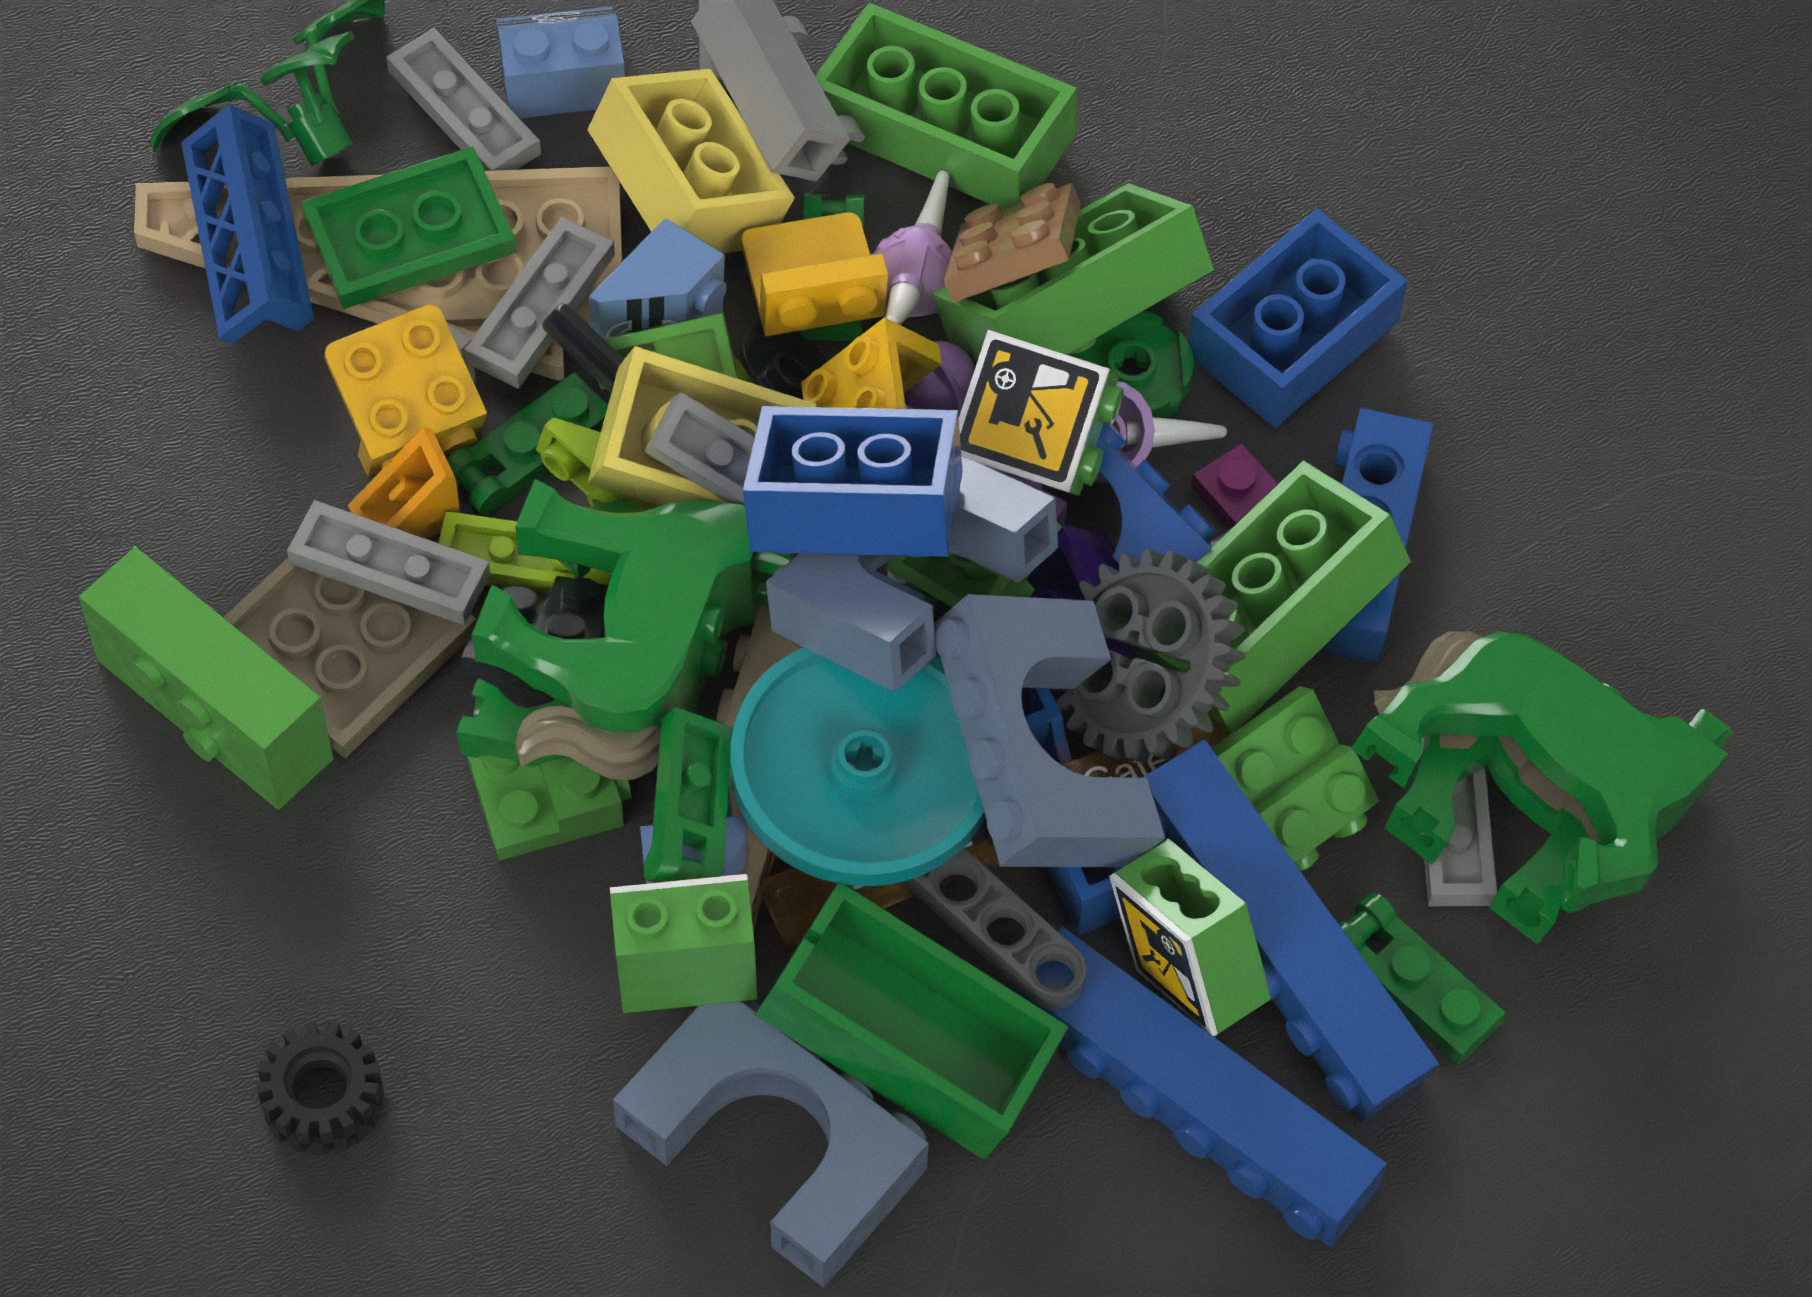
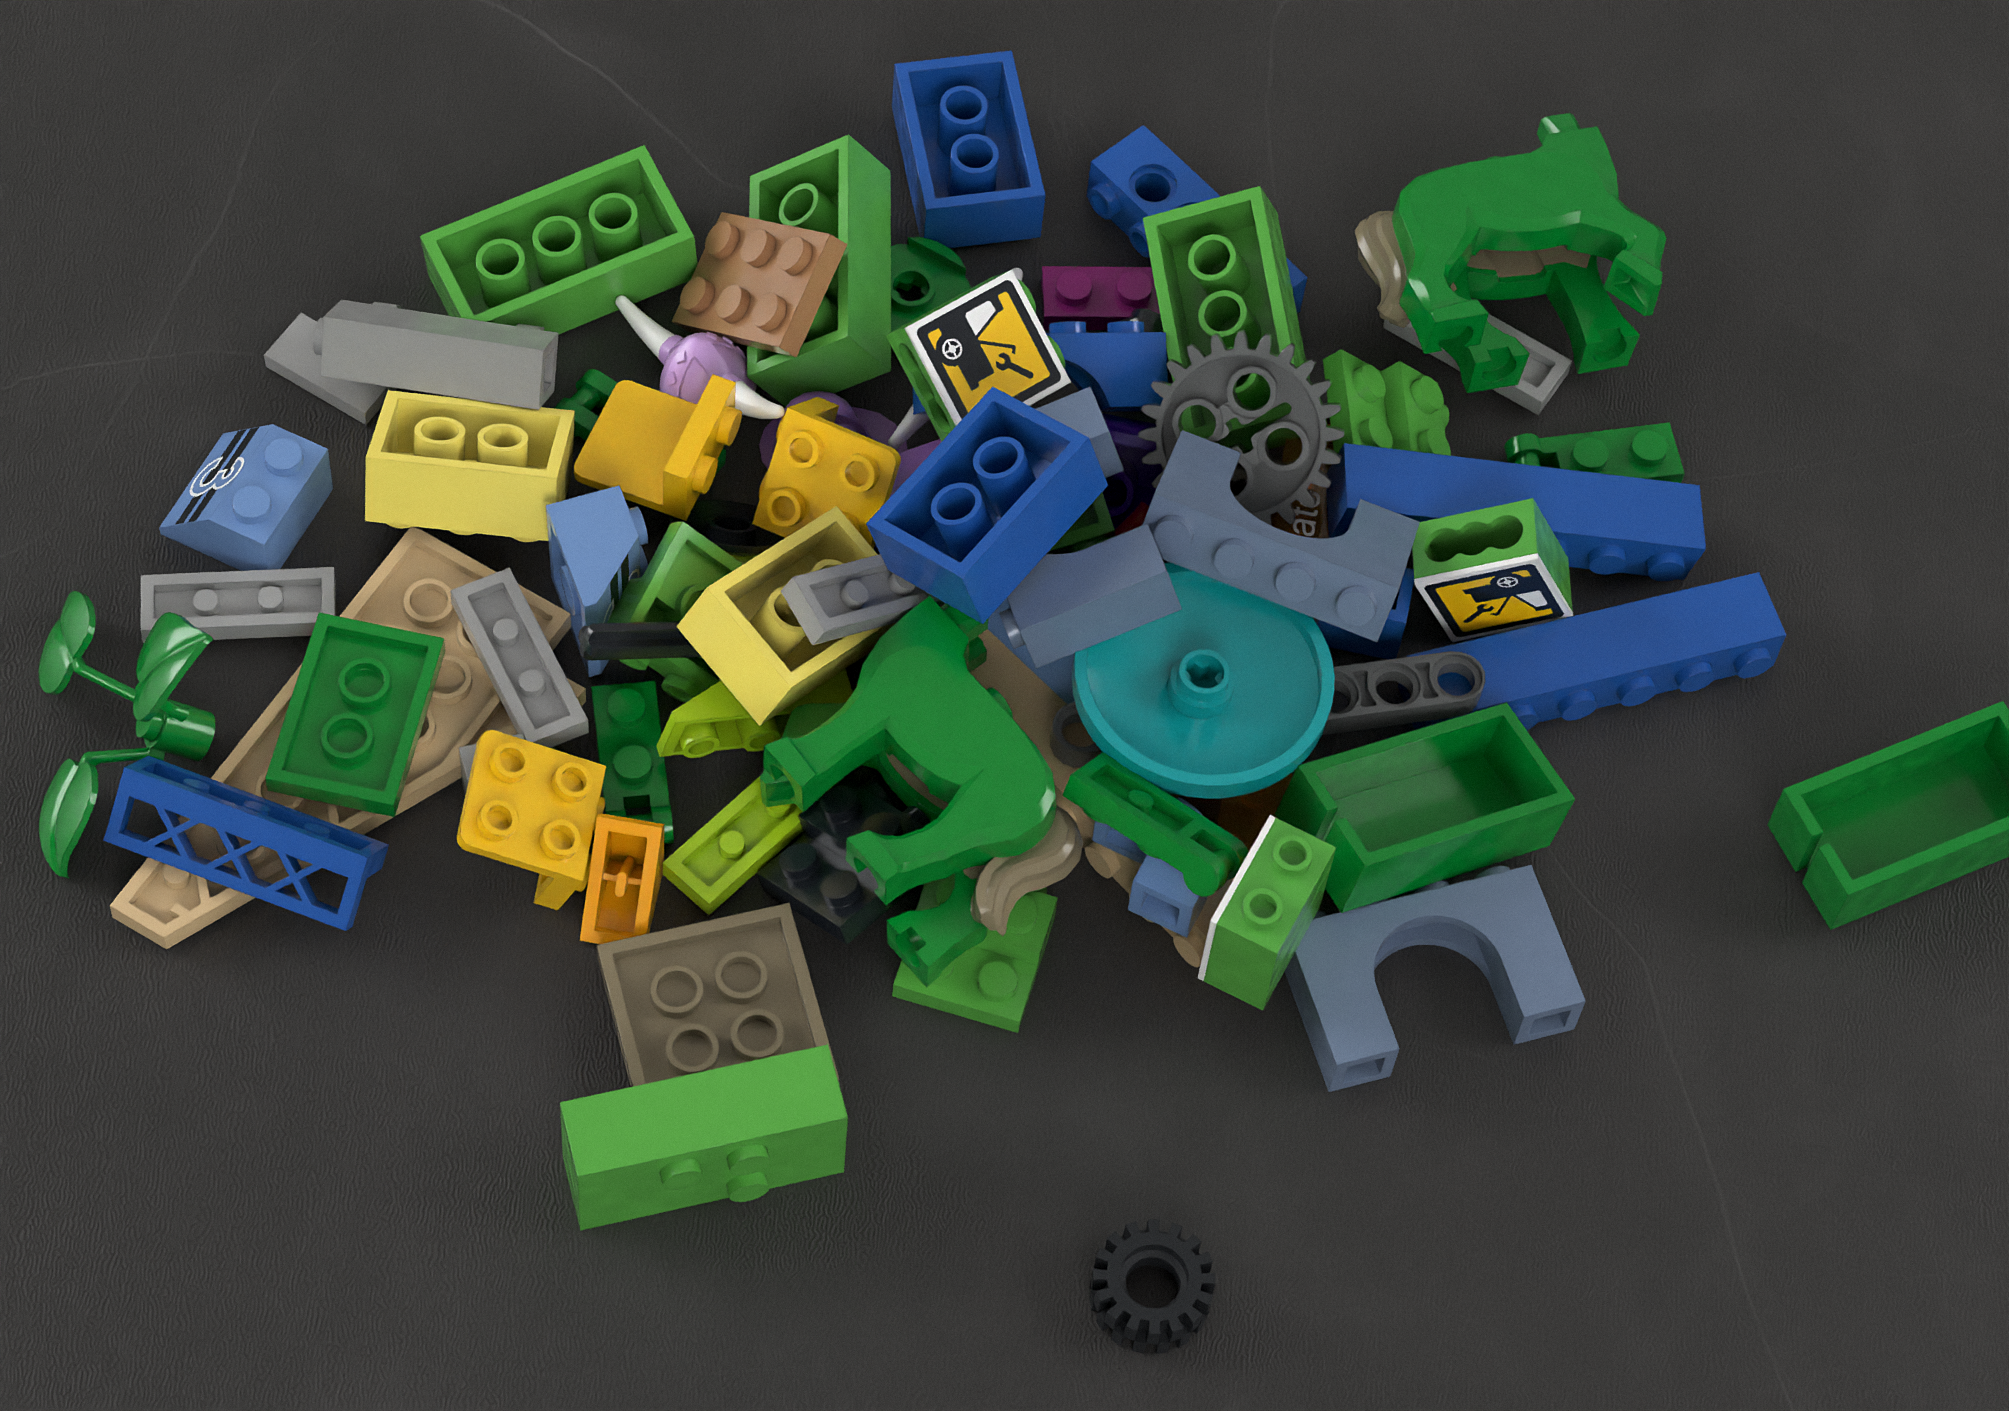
camera: 60 degrees left, 0 degrees up
(389, 562) = (694, 930): light grey plate -> none

